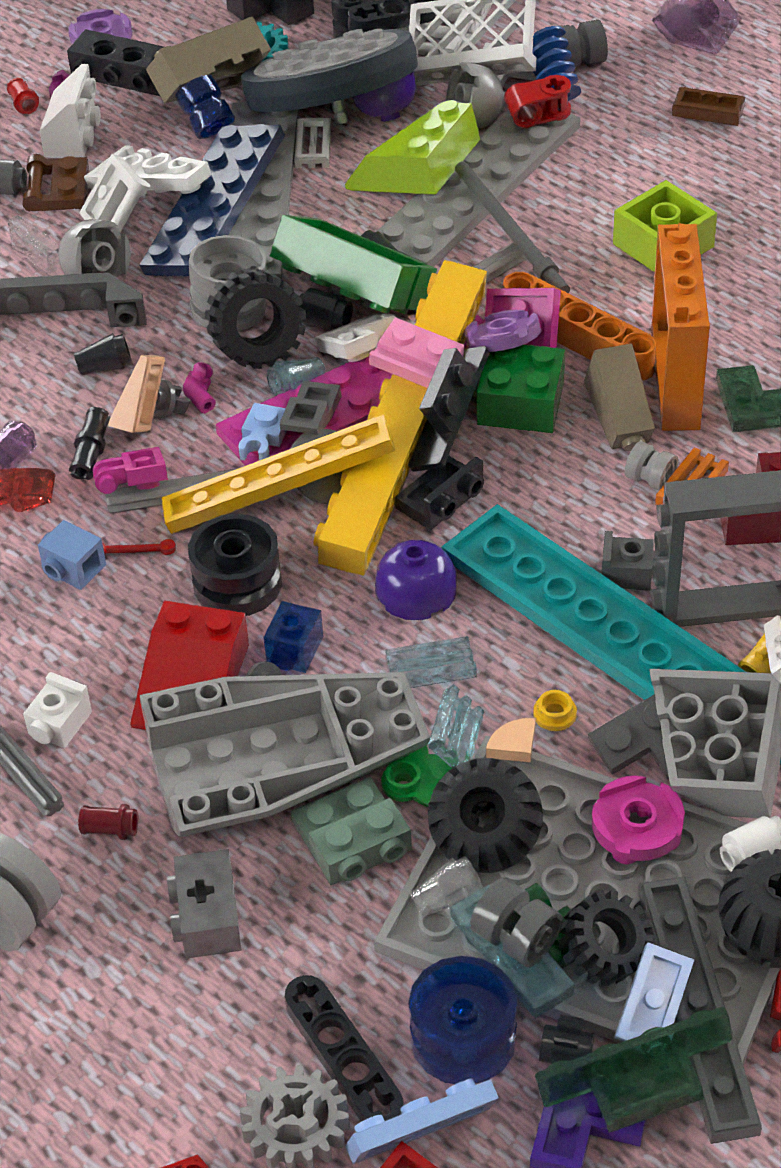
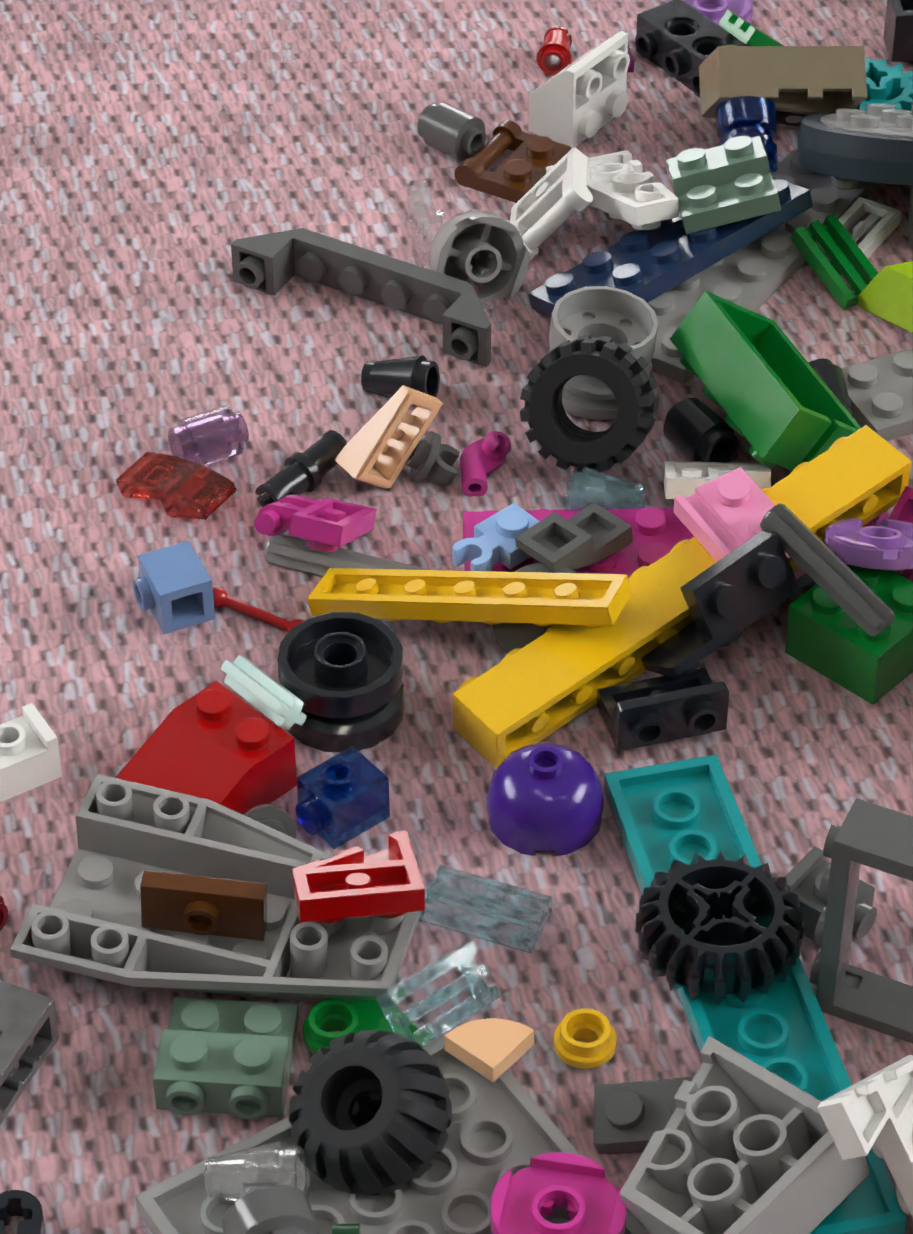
camera: 30 degrees right, 5 degrees down
(155, 36) = (745, 31): none -> tile
(193, 593) = (264, 692): none -> light aqua axle
(227, 141) = (723, 184): none -> sand green plate
(275, 743) = (203, 905): none -> reddish brown plate
(320, 166) = (845, 259): none -> green tile
(372, 679) = (360, 886): none -> red wing
(496, 359) = (828, 571): none -> dark grey axle
(566, 609) = (721, 941): none -> black gear

